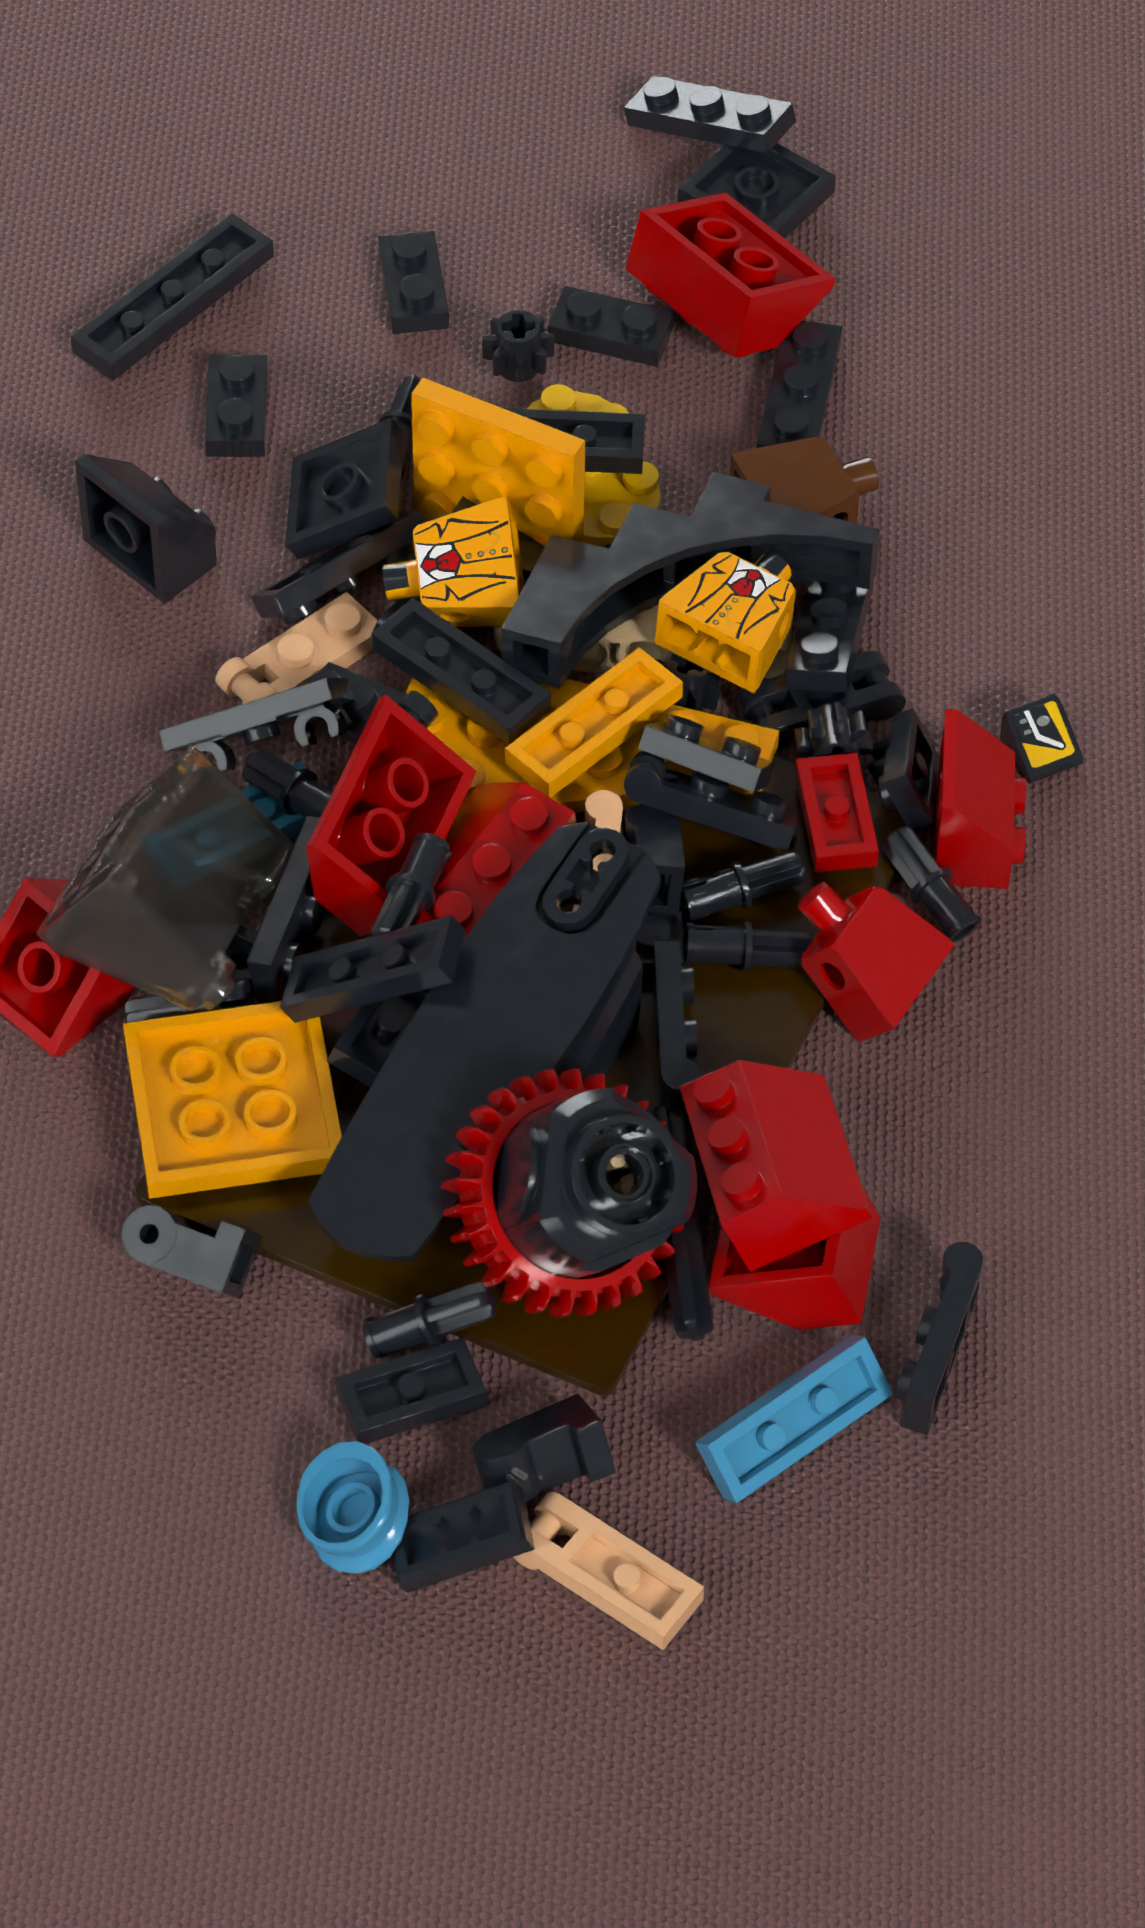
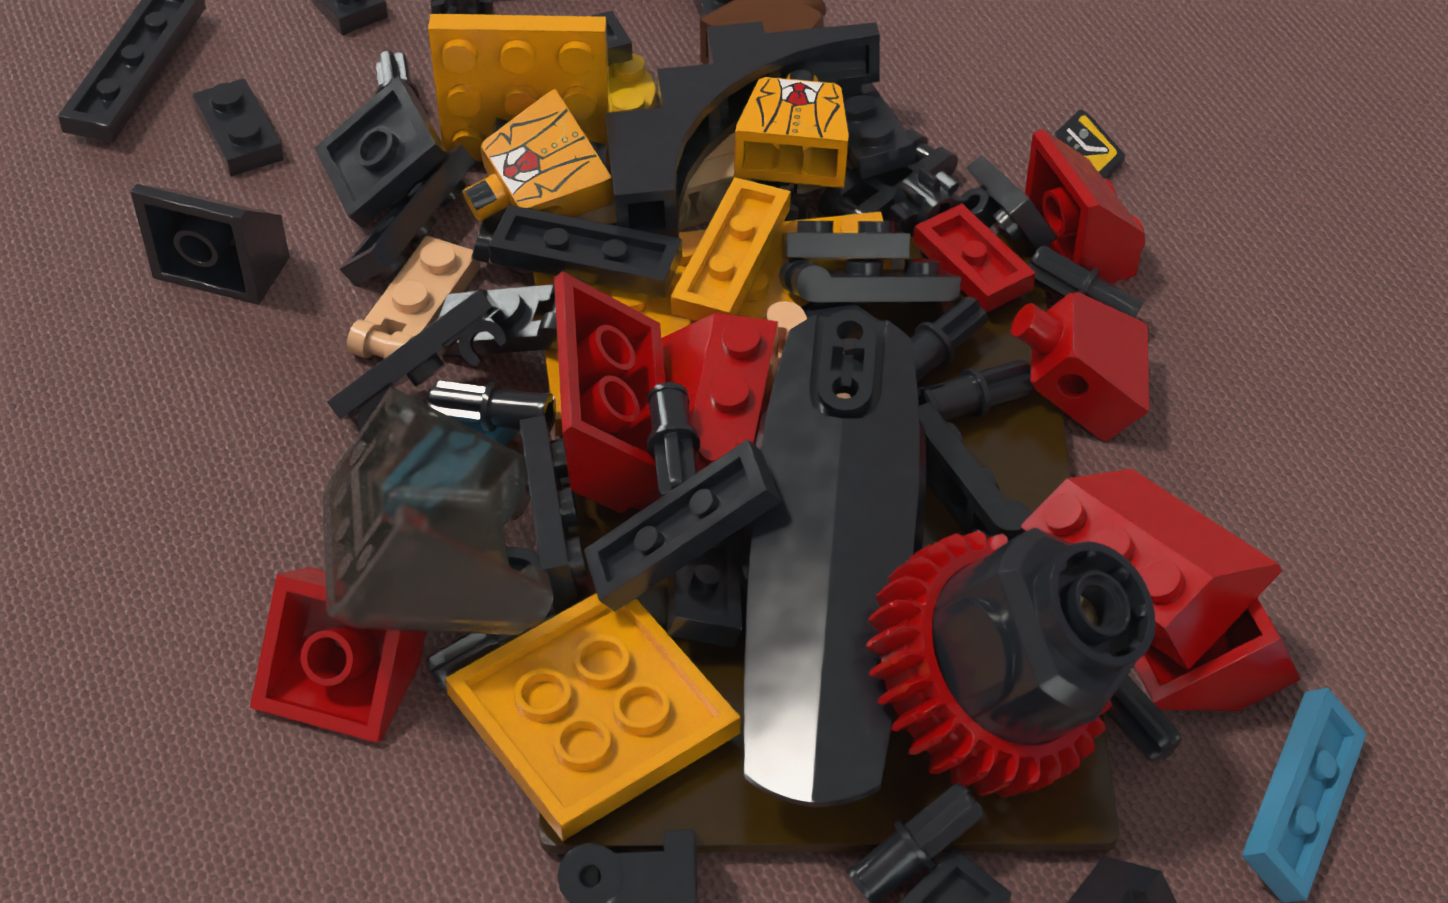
camera: 25 degrees left, 5 degrees down
(941, 1336) = (1378, 661): black plate -> none

